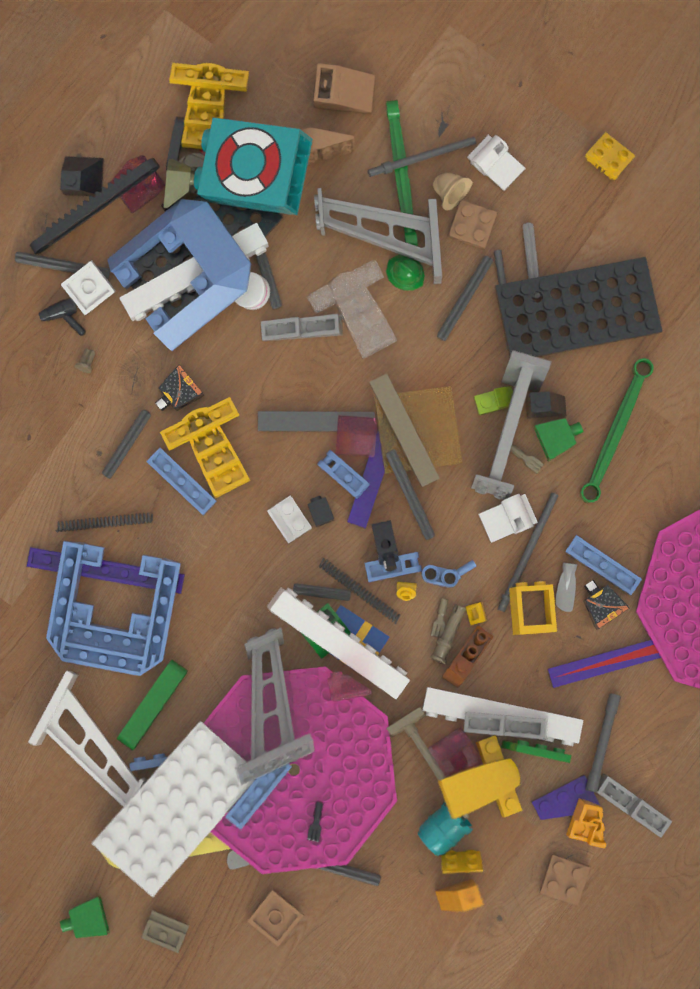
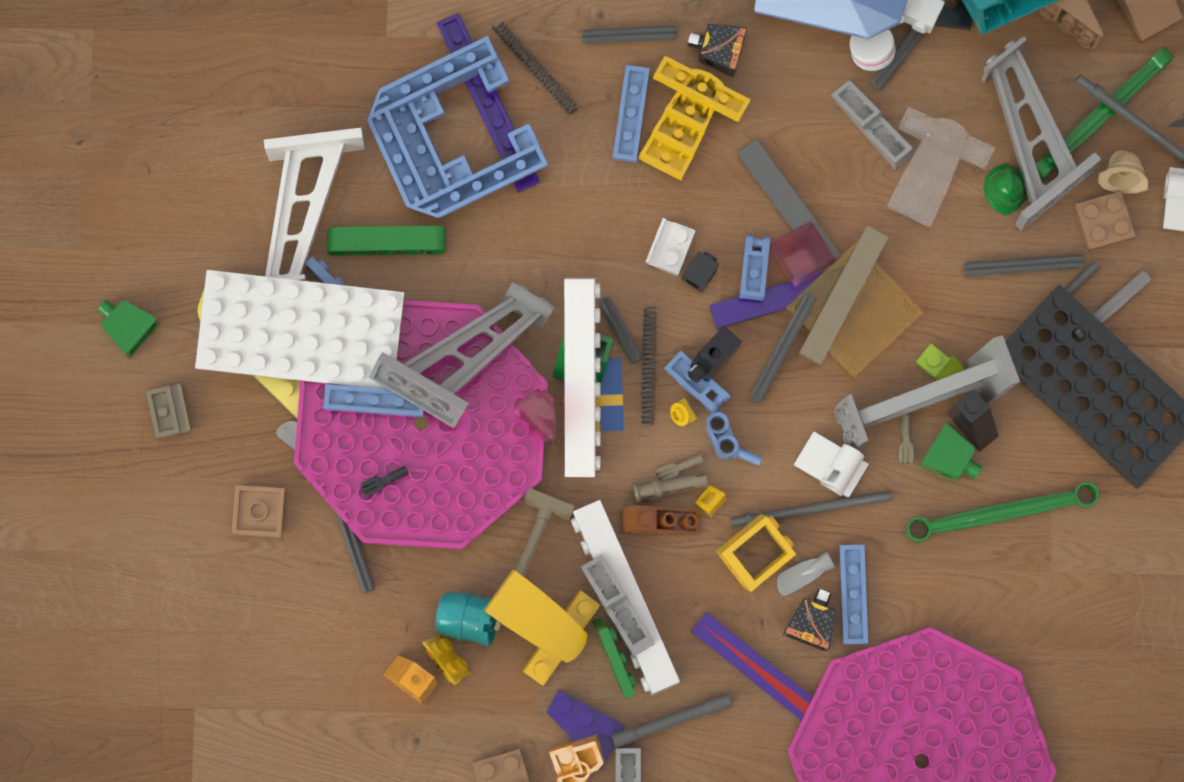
camera: 50 degrees right, 5 degrees down
(455, 753) = (553, 574): clear pink slope -> none

